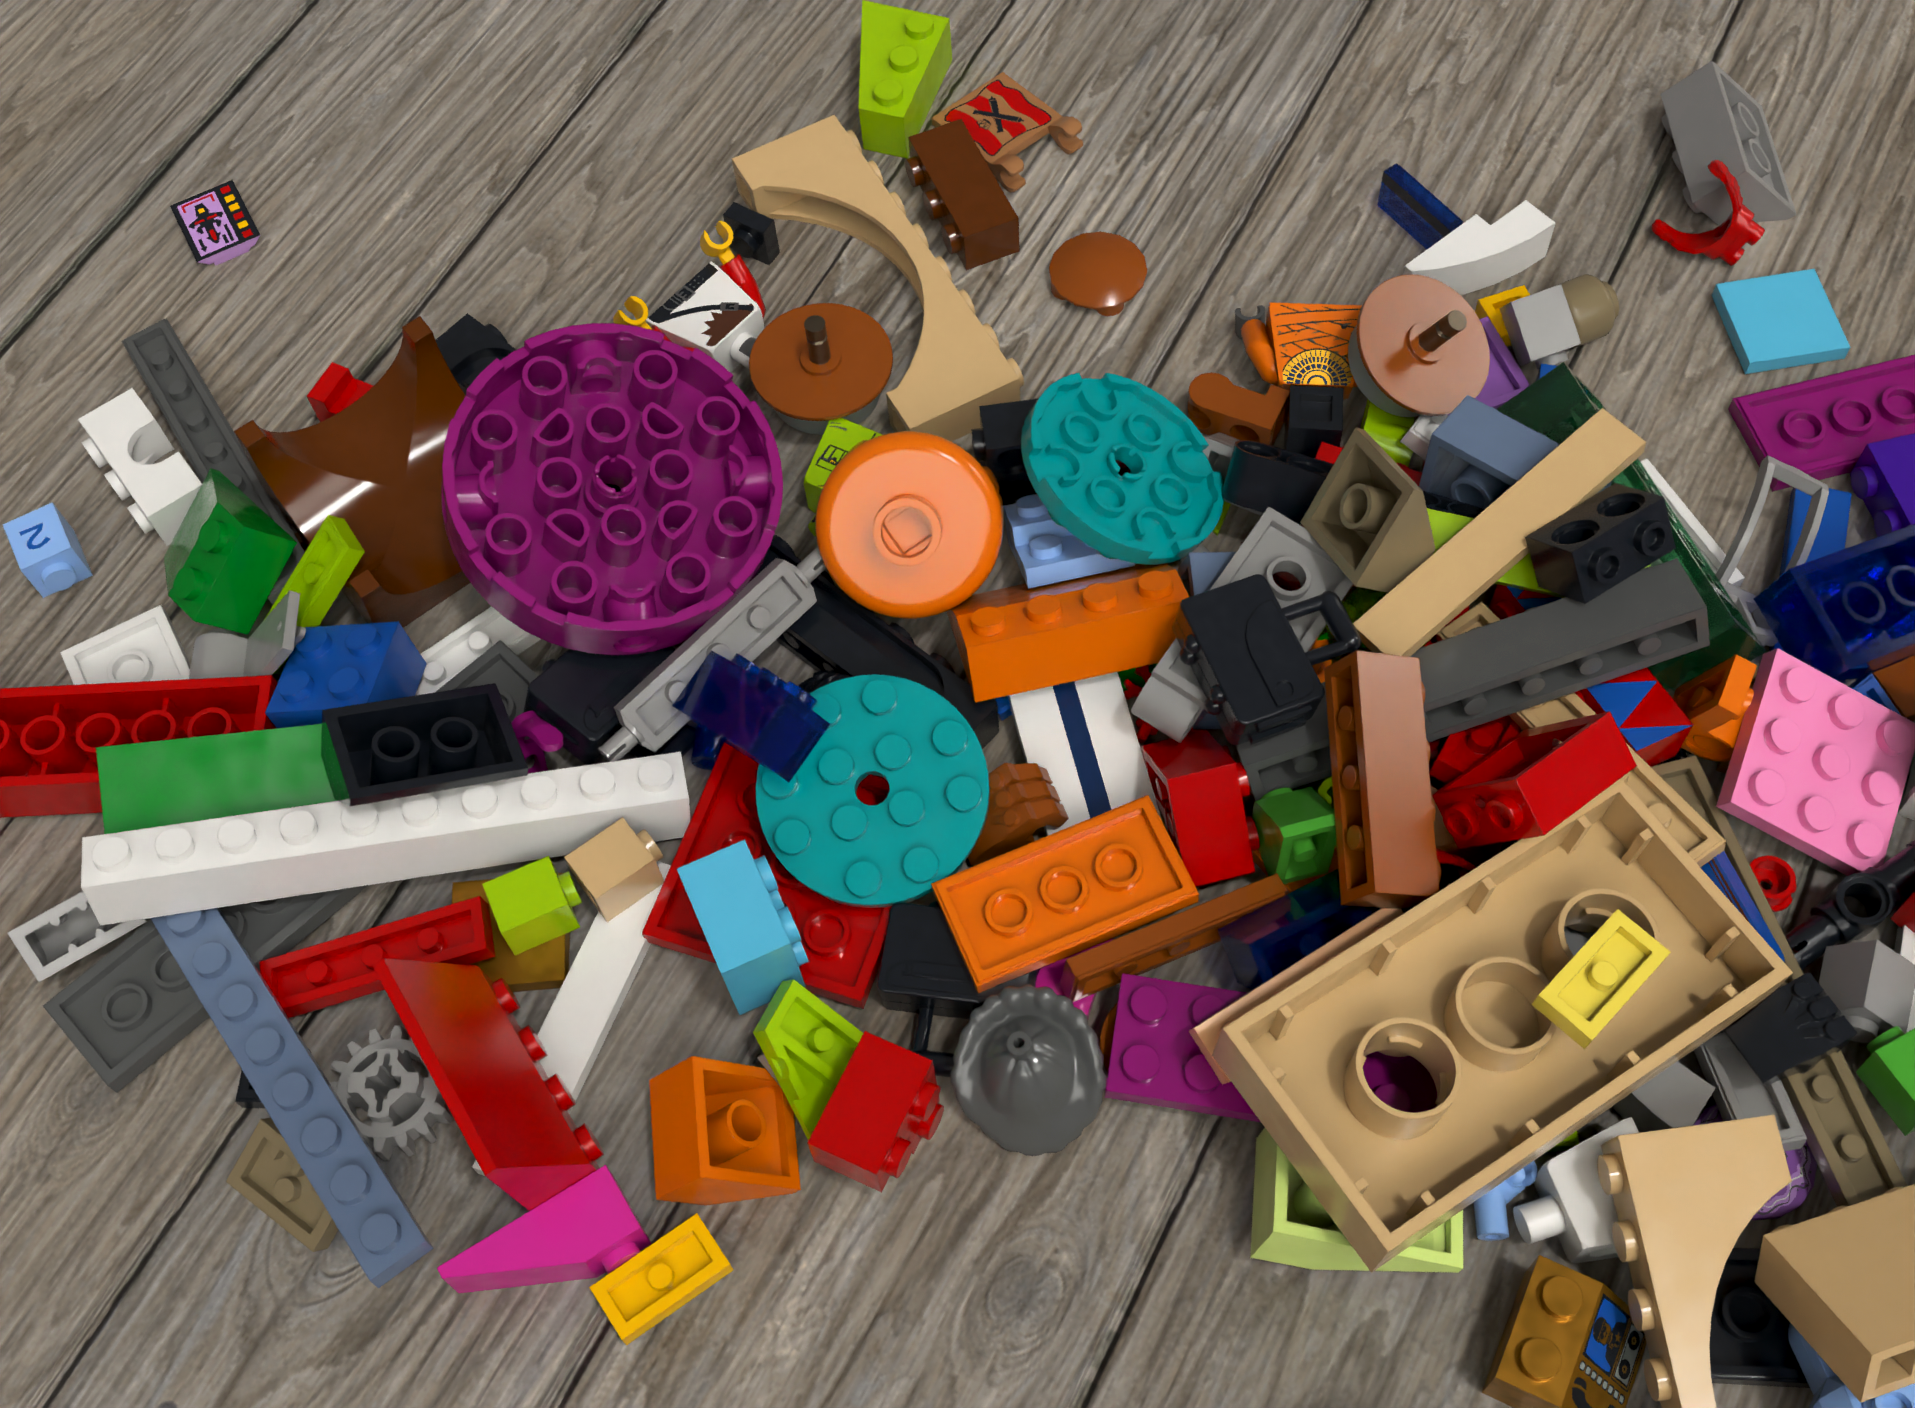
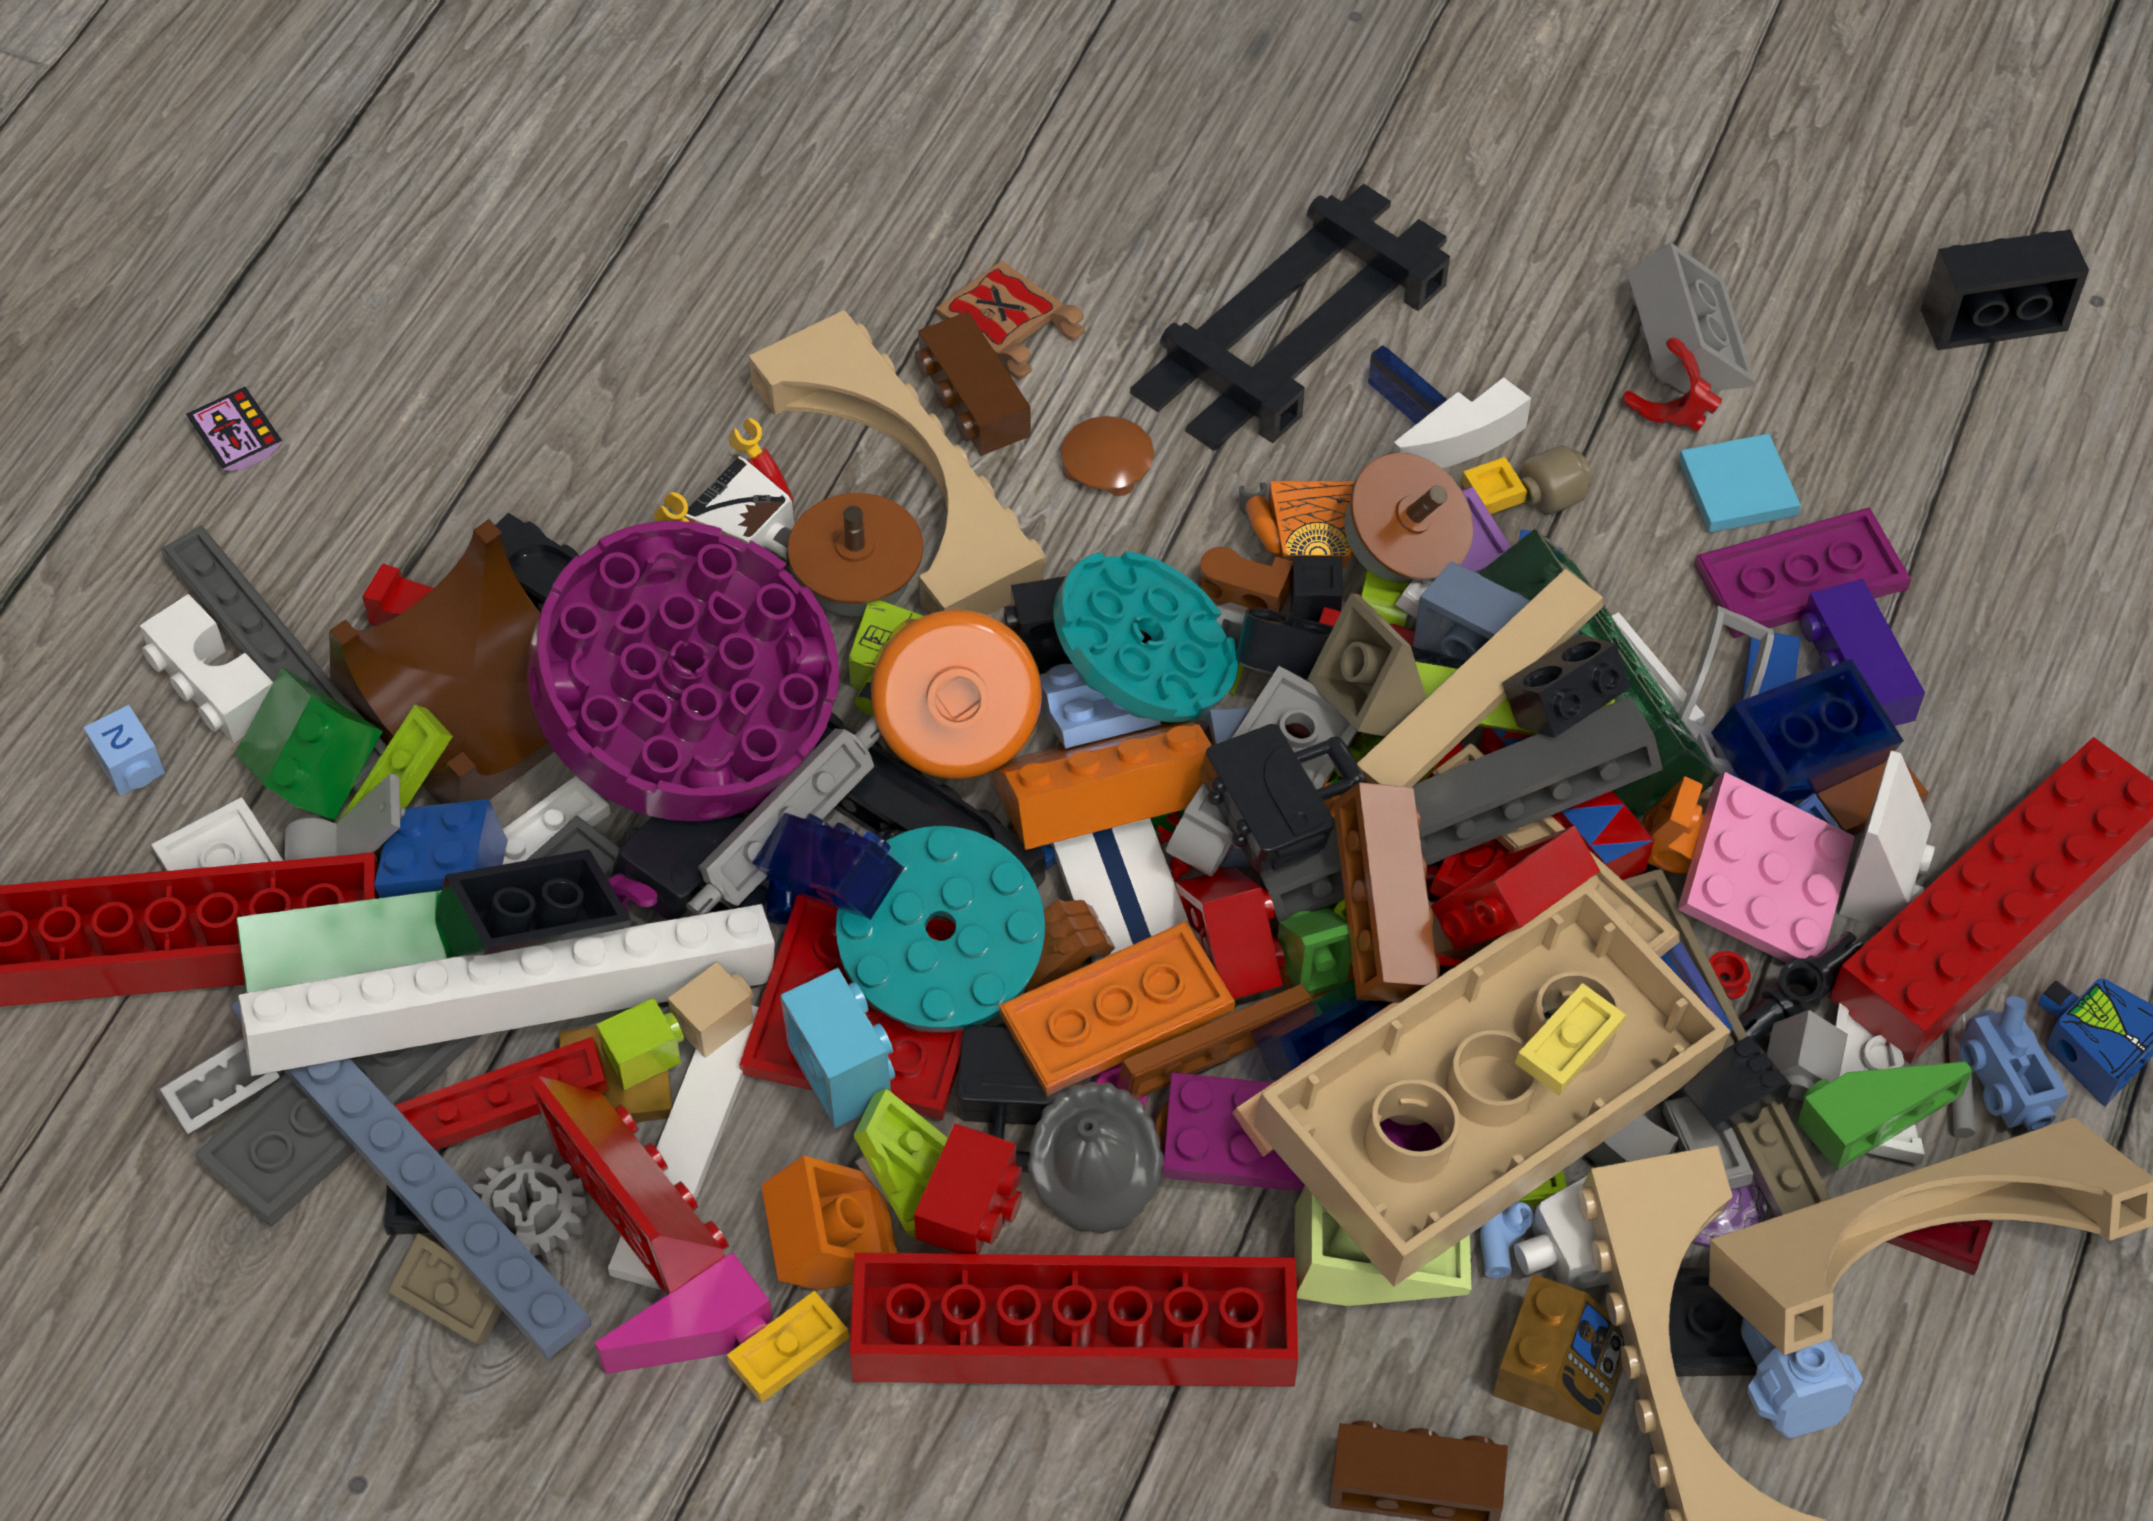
camera: 10 degrees left, 5 degrees down
(752, 234) = (777, 426): black plate -> none
(900, 73) = (903, 266): lime wedge -> none
(992, 1272) = (1074, 1319): none -> red brick
(1275, 205) = (1269, 386): none -> black fence
(1540, 327) = (1519, 496): light grey brick -> none

